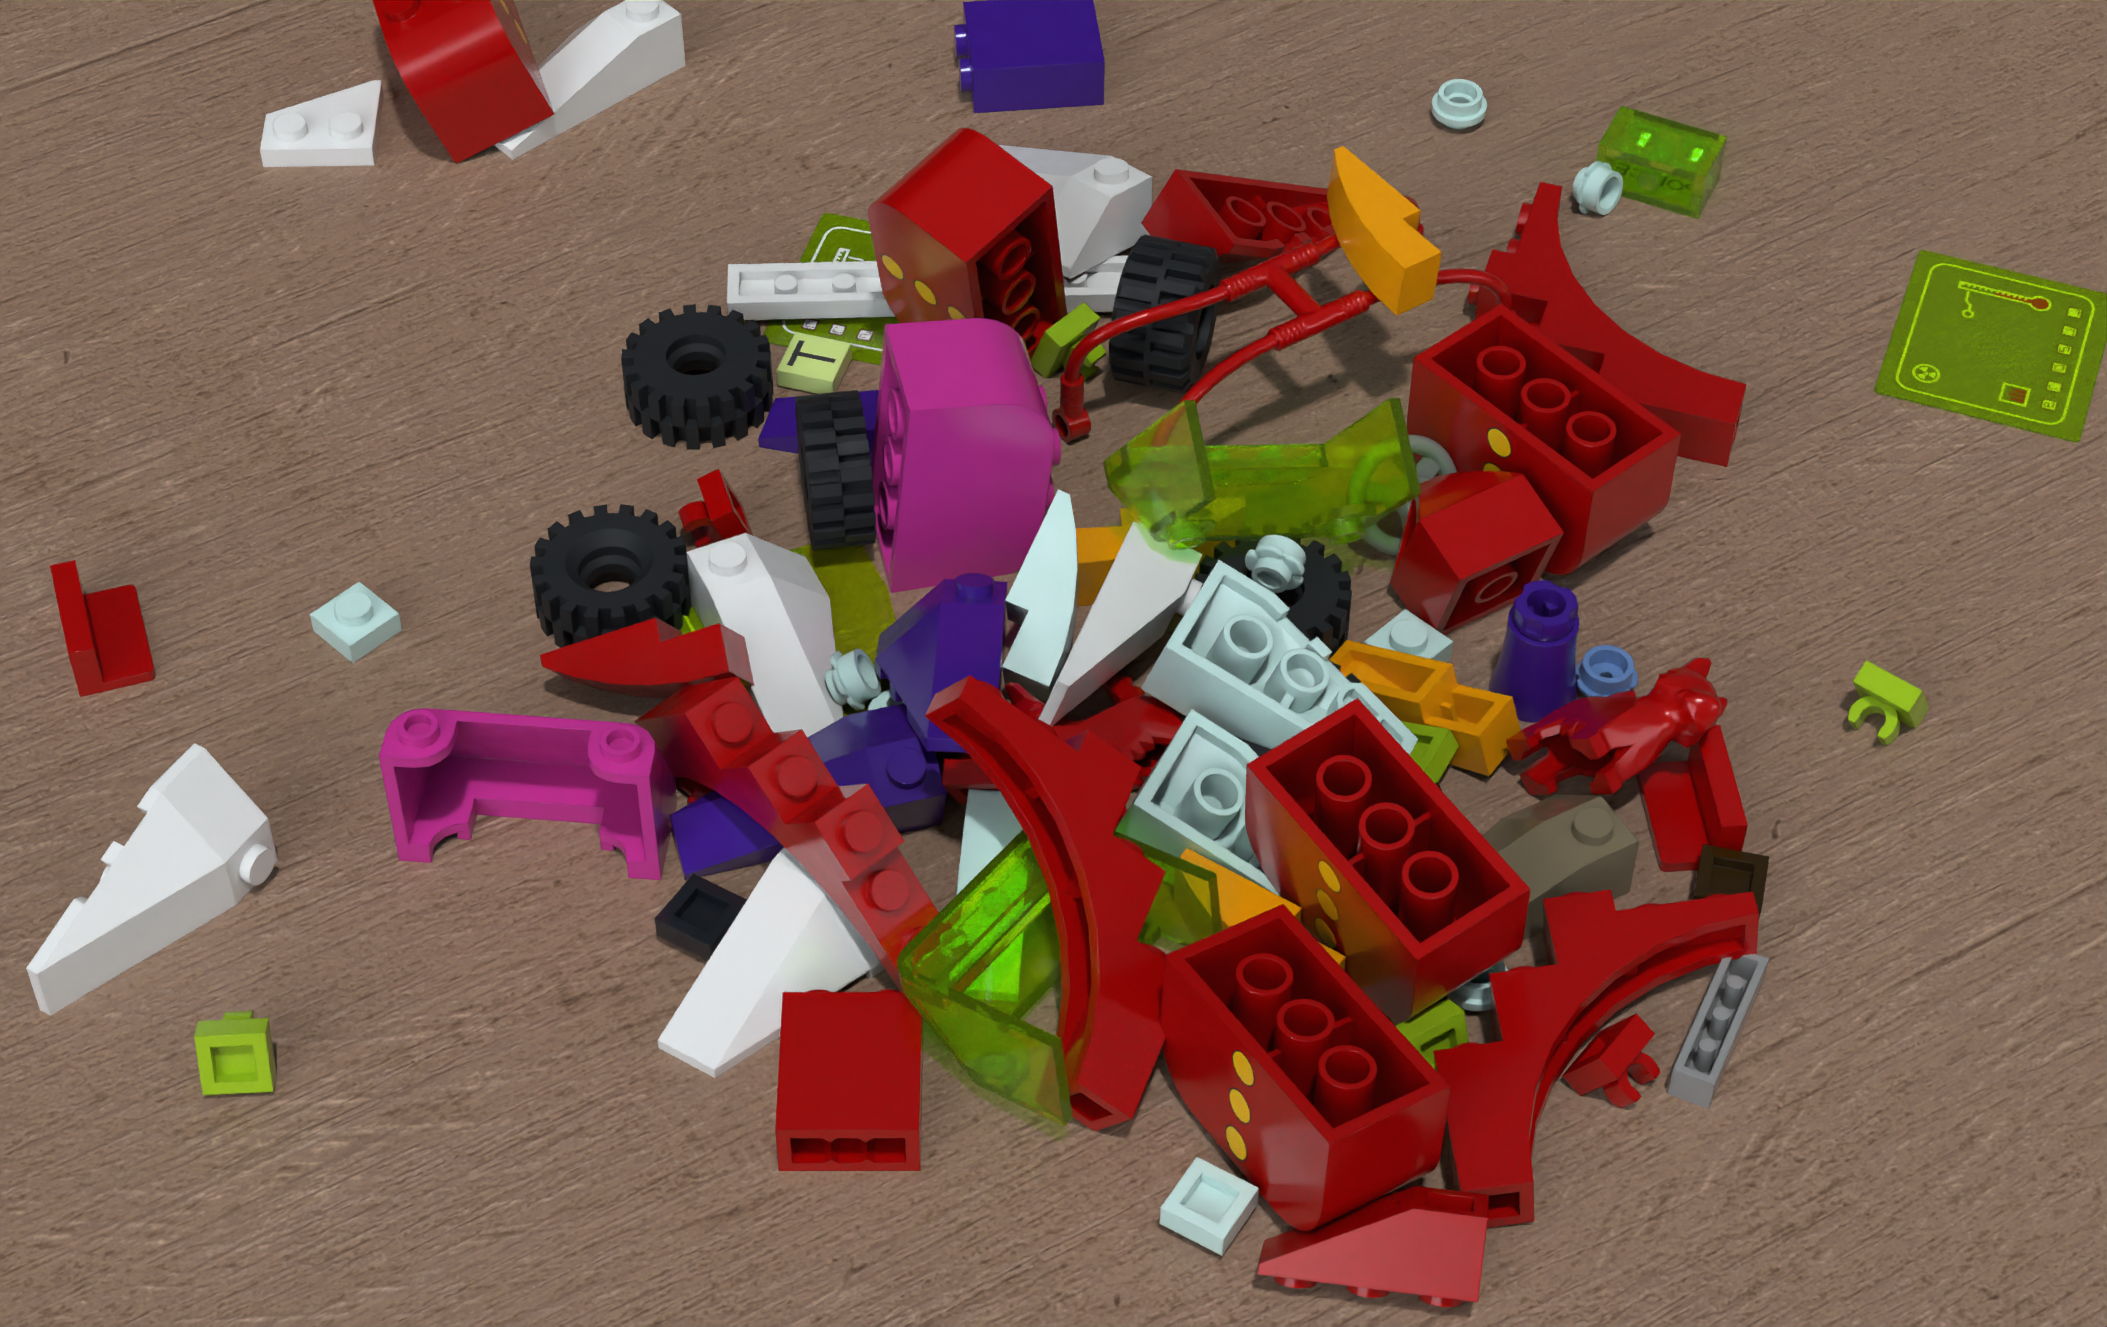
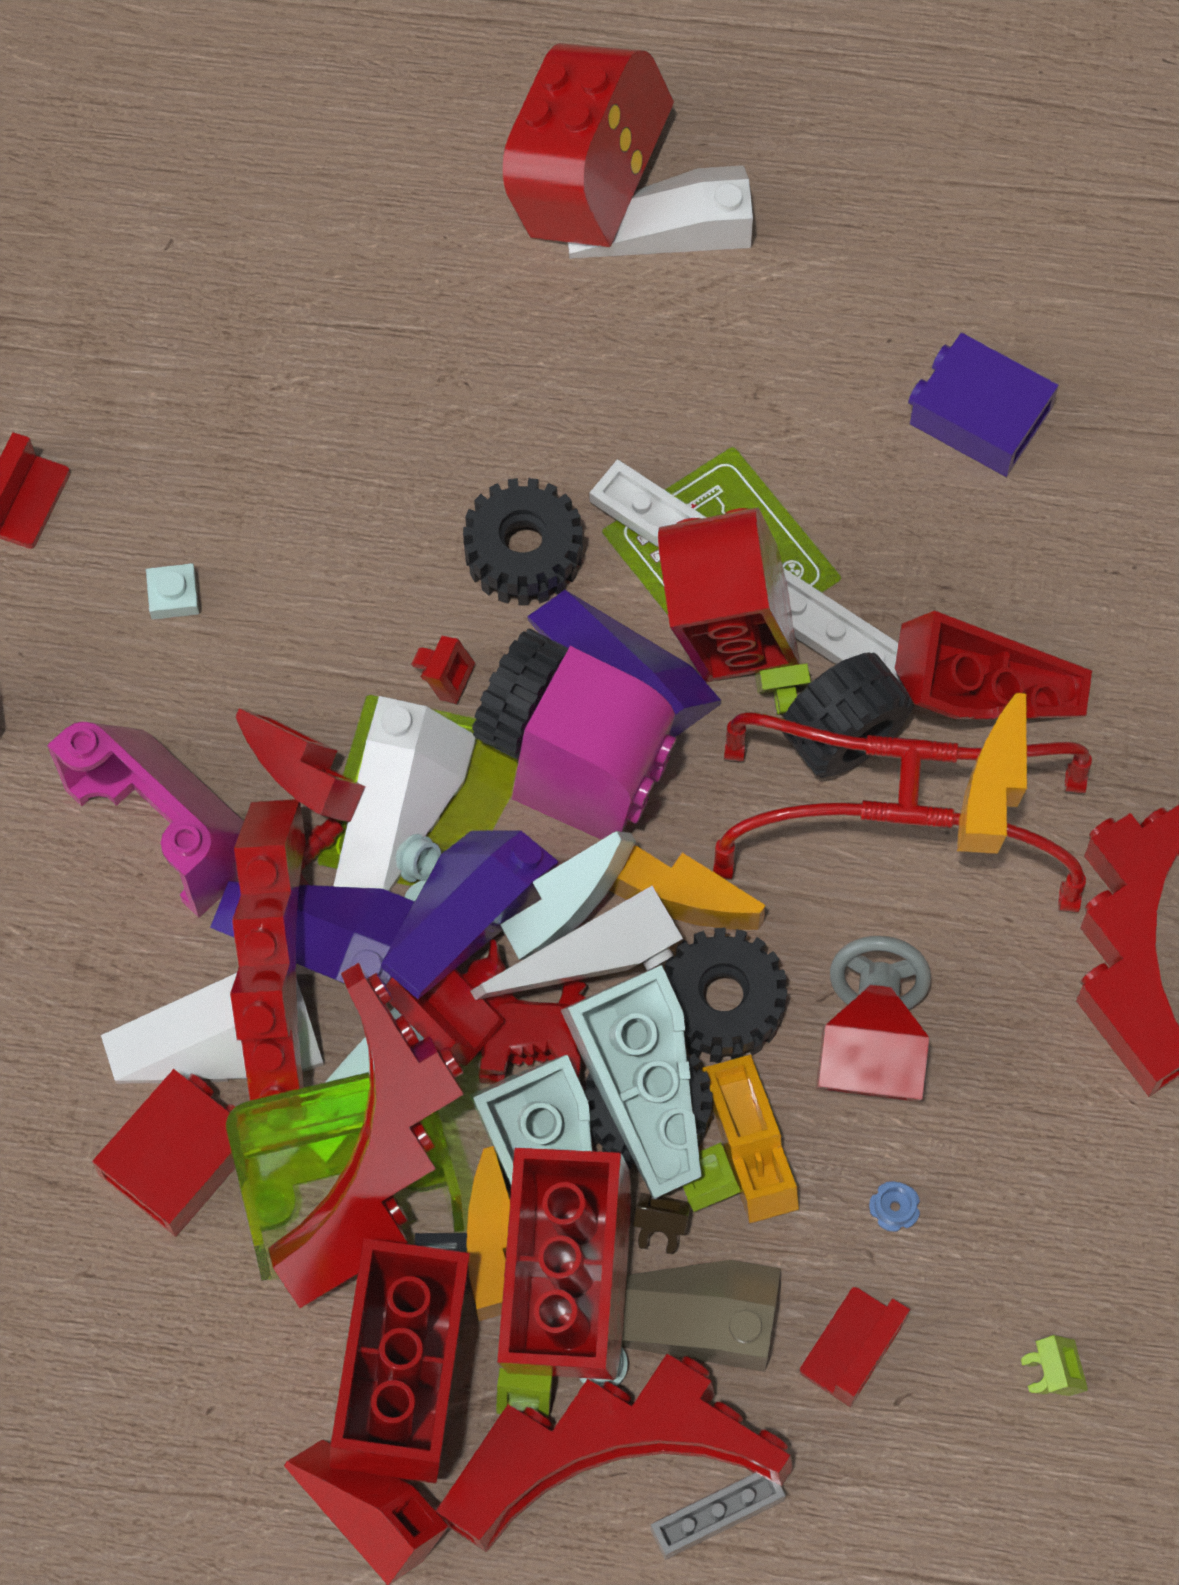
camera: 40 degrees right, 20 degrees up
(326, 130) = (461, 154): white wing -> none
(602, 551) = (327, 643): black tyre -> none
(698, 916) = (188, 968): black plate -> none
(814, 364) = (612, 578): yellowish green tile -> none
(1095, 201) = (874, 557): white wedge -> none
(1209, 1206) = (302, 1396): light aqua plate -> none
(1245, 492) = (759, 912): clear neon green windscreen -> none
(1276, 563) = (729, 977): light aqua plate -> none
(1412, 636) = (790, 1087): light aqua plate -> none
(1525, 405) = (988, 1005): red brick -> none
(1539, 651) = (846, 1183): dark purple plant -> none
(1609, 1060) = (624, 1484): red tile -> none
(1619, 732) = (832, 1270): red animal -> none
(1731, 873) = (820, 1421): dark brown plate -> none

